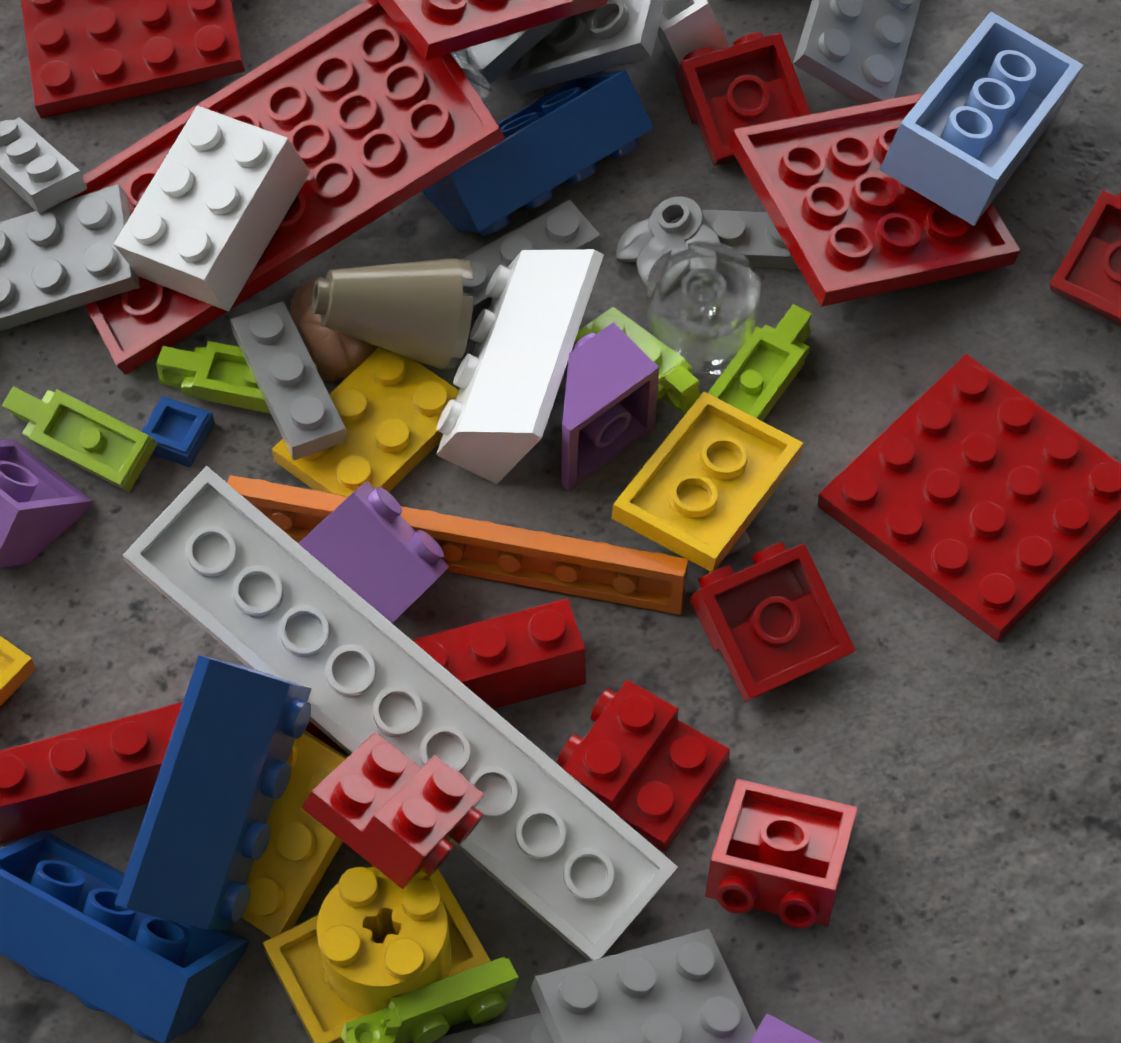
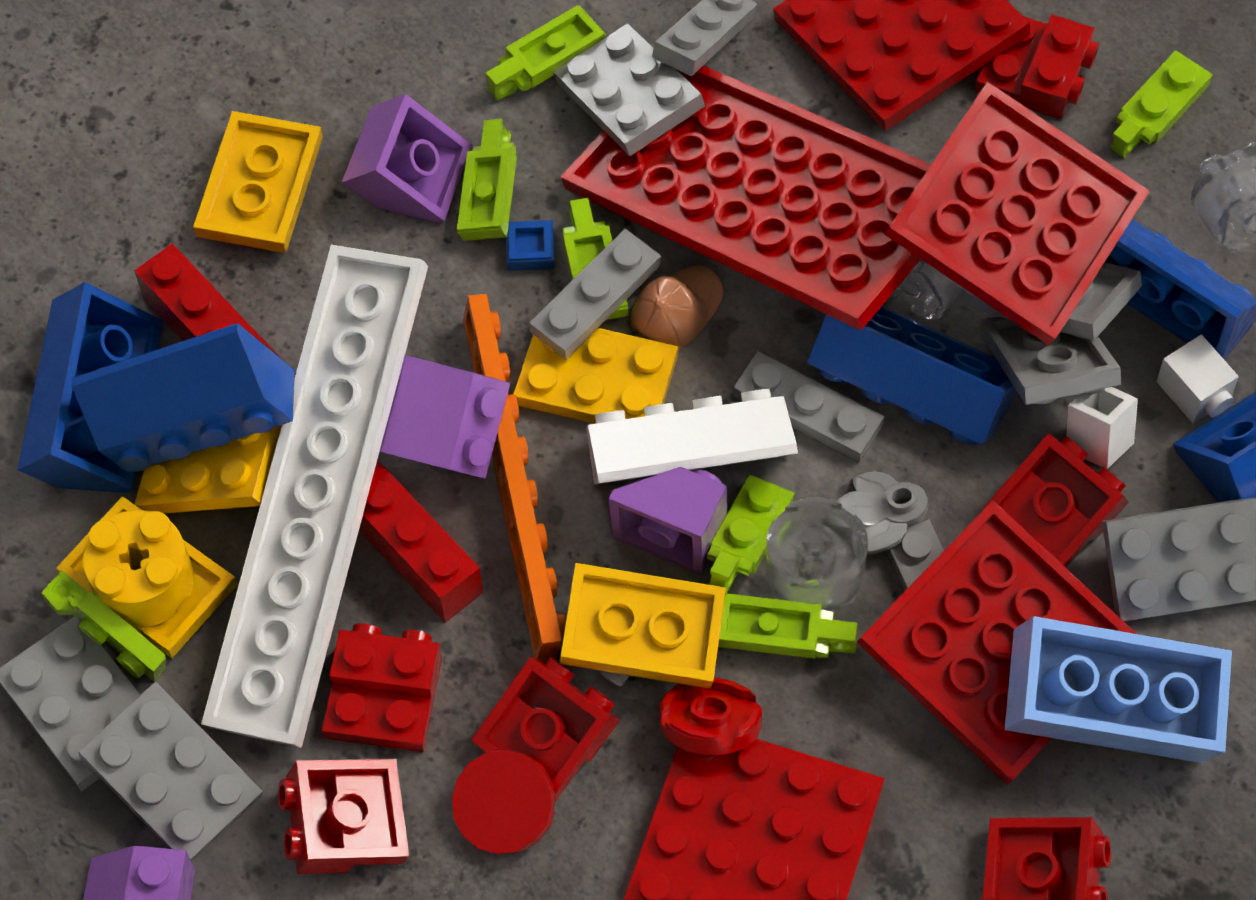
camera: 65 degrees right, 5 degrees up
(212, 207) = (697, 163): white brick -> none
(396, 810) = (220, 519): red plate -> none
(401, 308) = (688, 336): dark tan cone -> none
(836, 468) = (710, 719): none -> red tile
(838, 692) = (503, 802): none -> red tile

